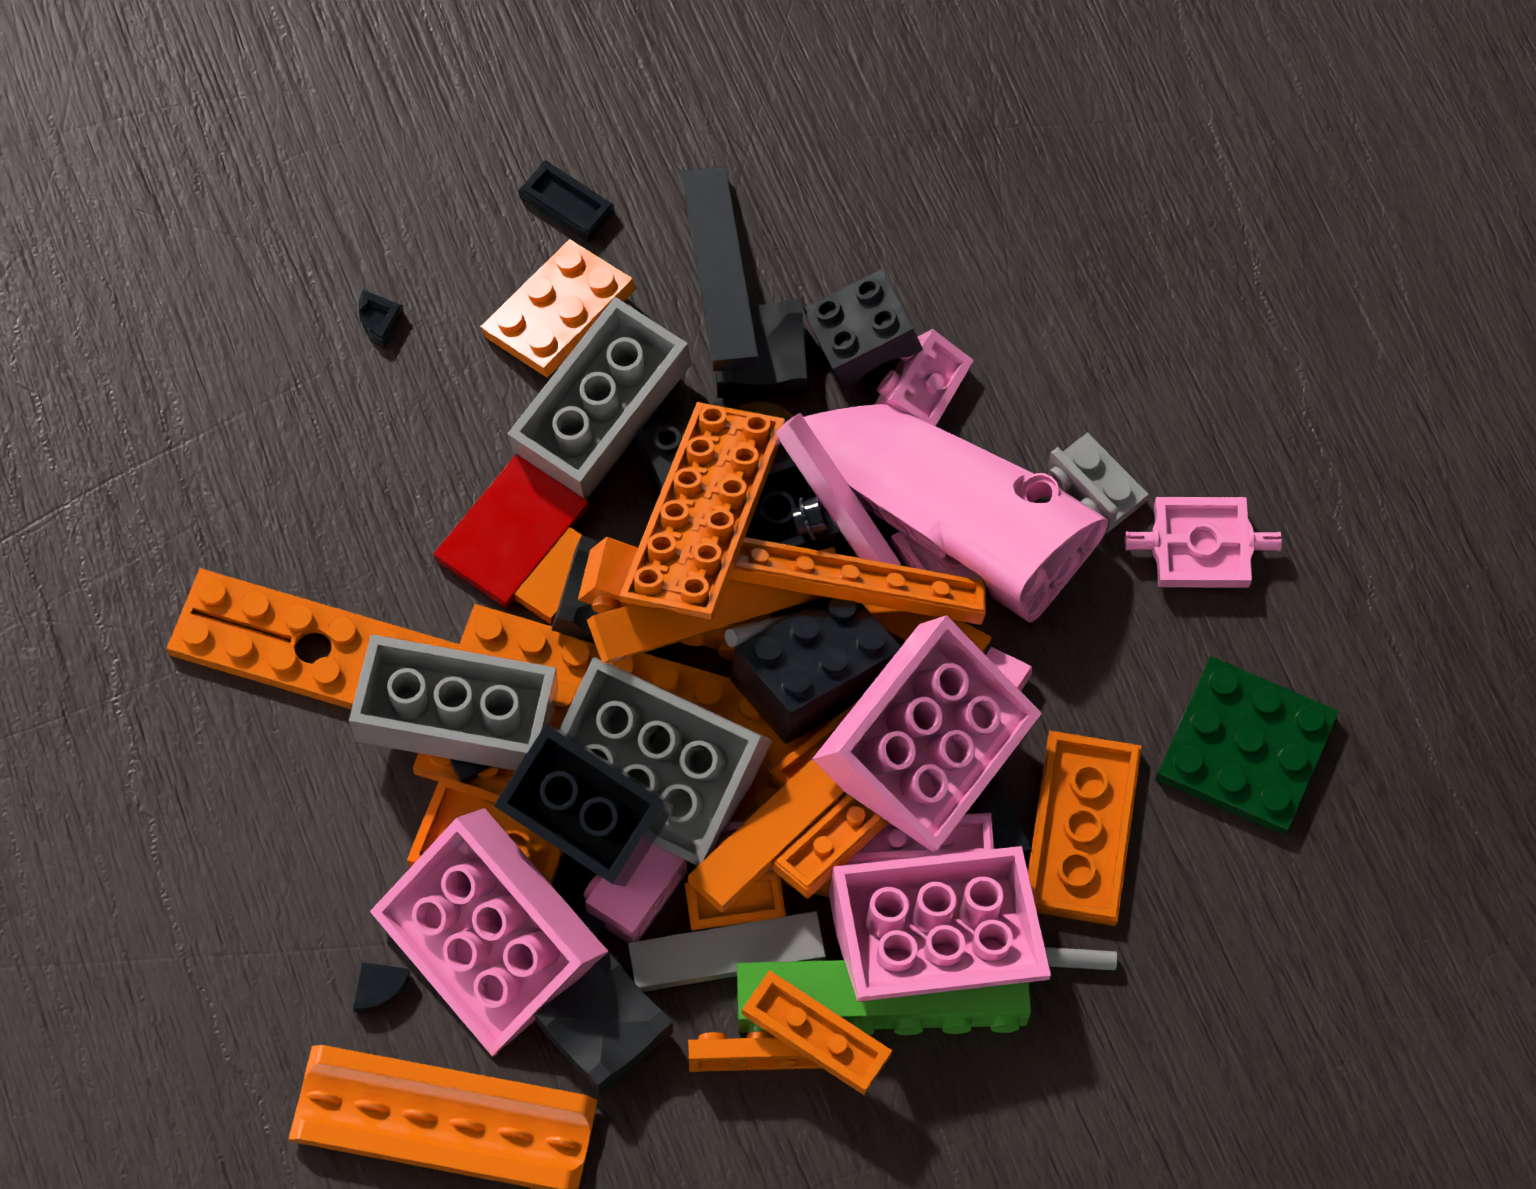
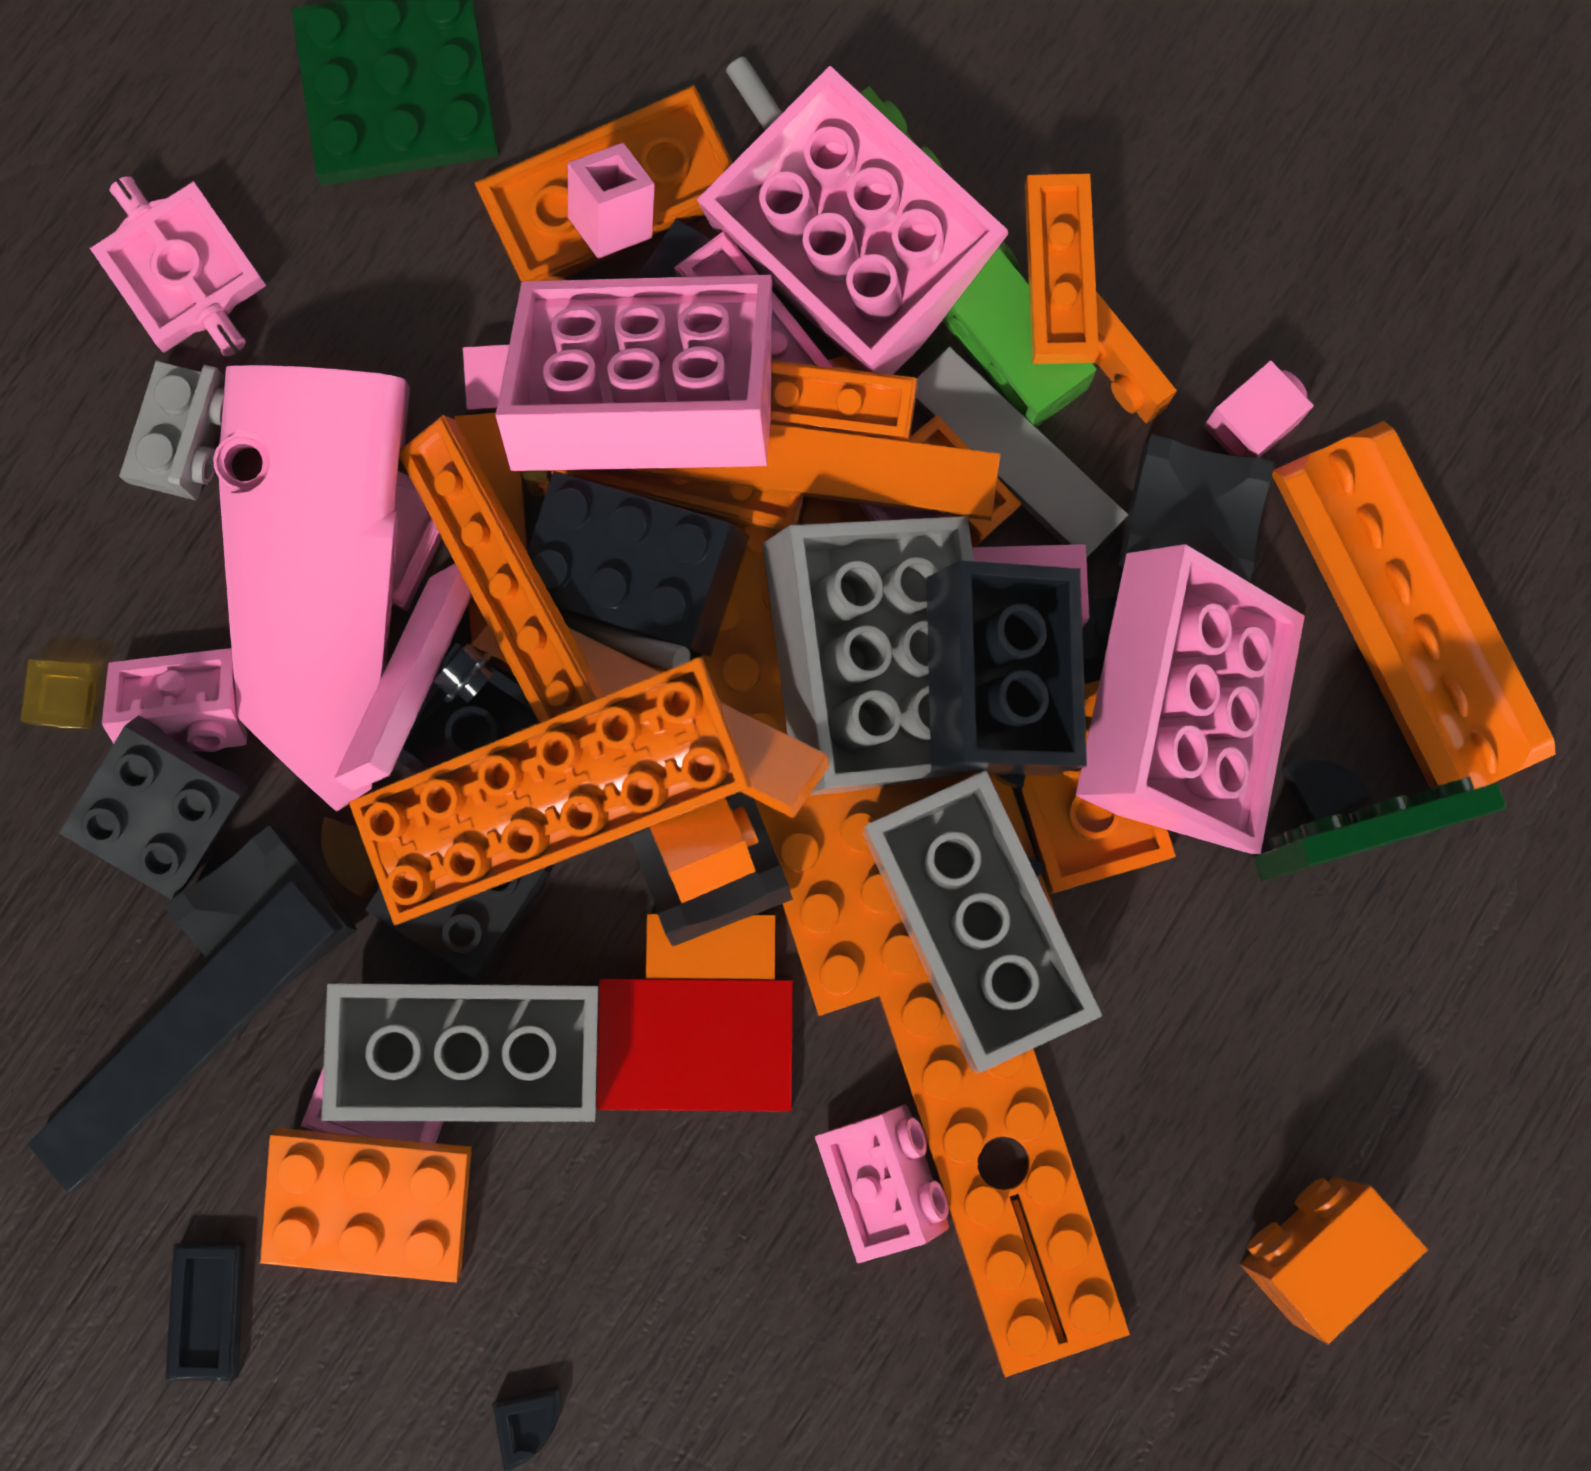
camera: 125 degrees left, 15 degrees up
(119, 771) = (1331, 1256): none -> orange brick
(328, 960) = (1378, 826): none -> dark green plate
(353, 576) = (884, 1183): none -> bright pink bracket
(638, 1114) = (1259, 412): none -> bright pink brick
(975, 327) = (59, 694): none -> clear yellow tile
(1058, 796) = (610, 200): none -> bright pink brick

